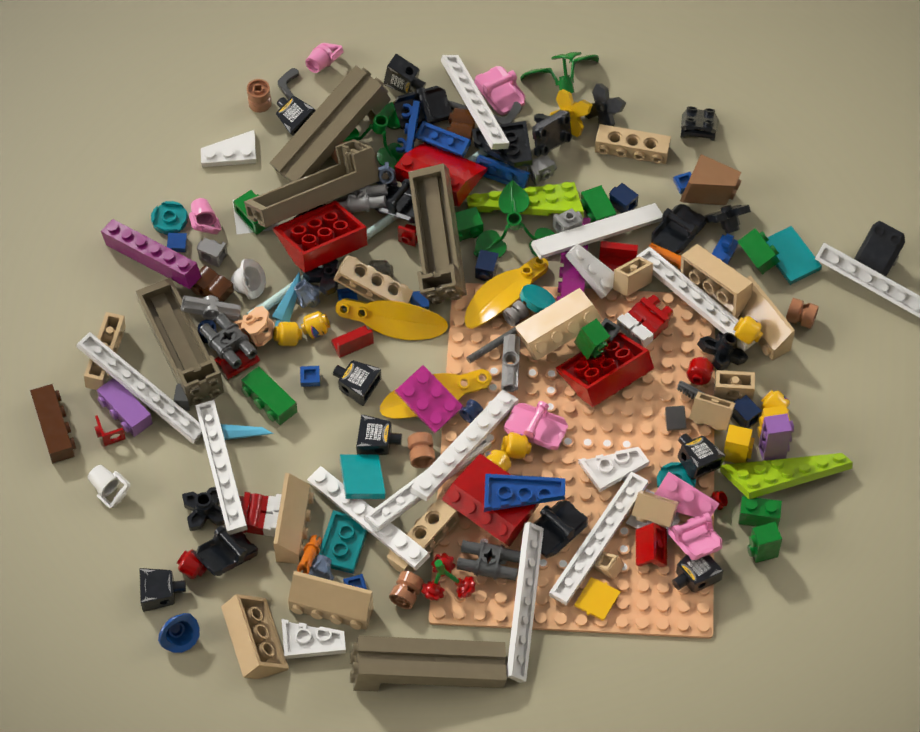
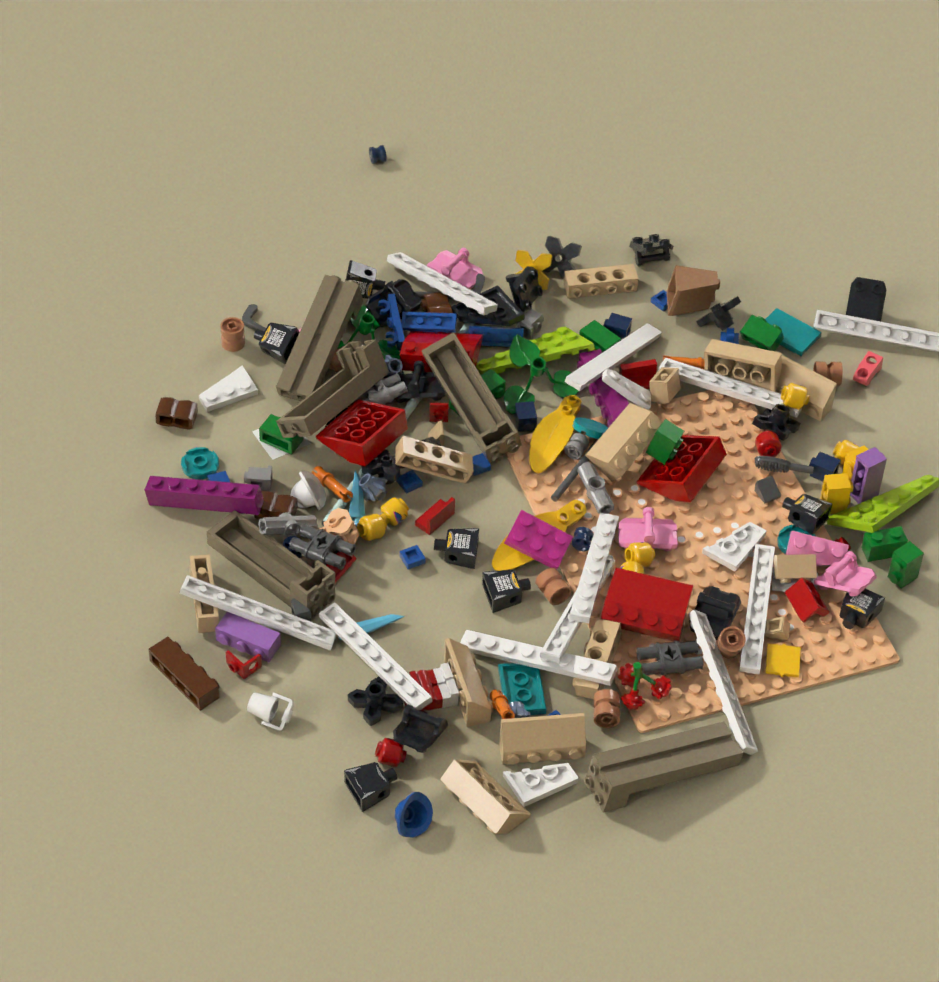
camera: 25 degrees left, 10 degrees down
(170, 160) = (176, 413): none -> reddish brown brick
(204, 217) = (236, 450): bright pink piece -> none
(268, 396) = (383, 585): green brick -> none
(271, 273) = (329, 481): none -> orange pin
(323, 56) = (275, 286): bright pink piece -> none
(362, 476) = (512, 625): teal tile -> none
(394, 318) = (466, 484): yellow plant -> none
(396, 258) = (438, 432): none -> tan slope
(518, 491) = (671, 585): blue wing -> none
(550, 565) = (731, 642): none -> nougat wheel
(565, 82) = (513, 245): green plant -> none
(567, 220) = (584, 352): light grey brick -> none
(645, 320) = (697, 415): red hips -> none
(678, 228) = (679, 338): black shield -> none
(712, 411) = (799, 472): tan brick -> none
(734, 384) = (803, 447): tan brick -> none
(846, 320) = (868, 369): none -> coral leg

